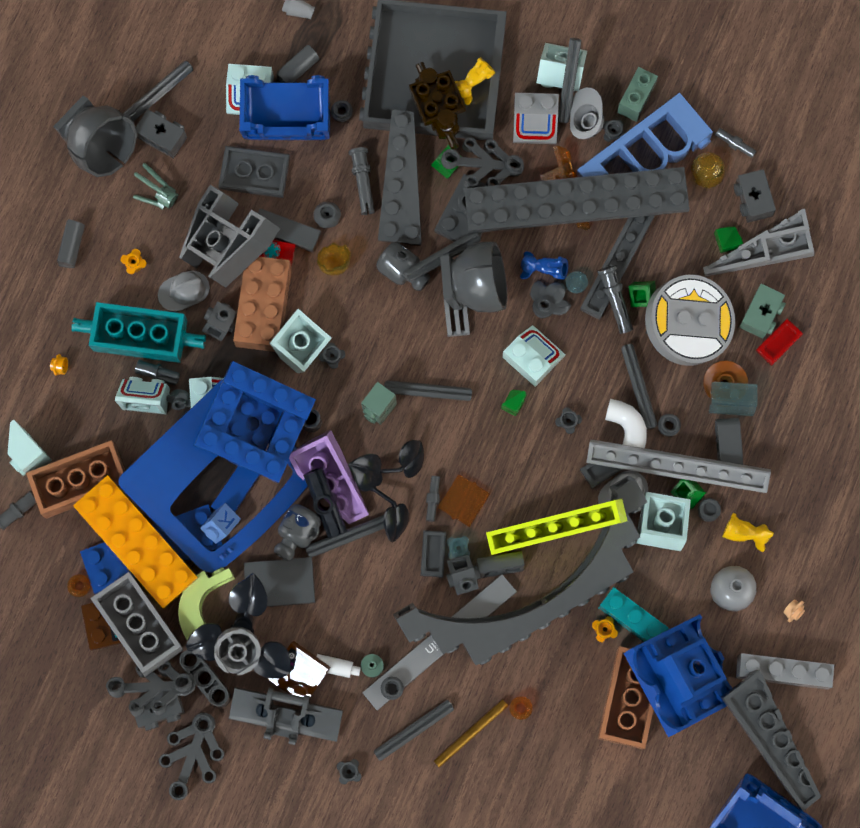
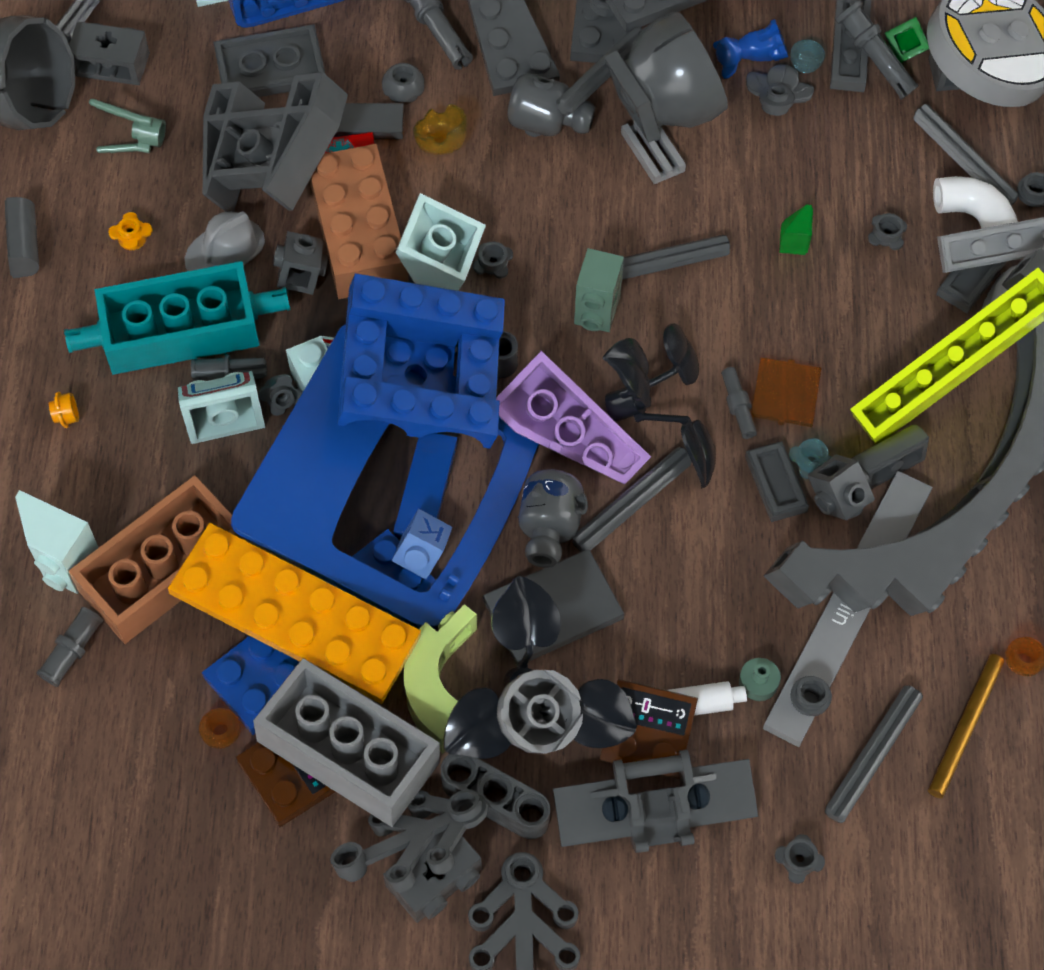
camera: 25 degrees left, 15 degrees down
(330, 516) = (561, 434): black piece -> none
(533, 355) = (791, 167): light aqua slope -> none

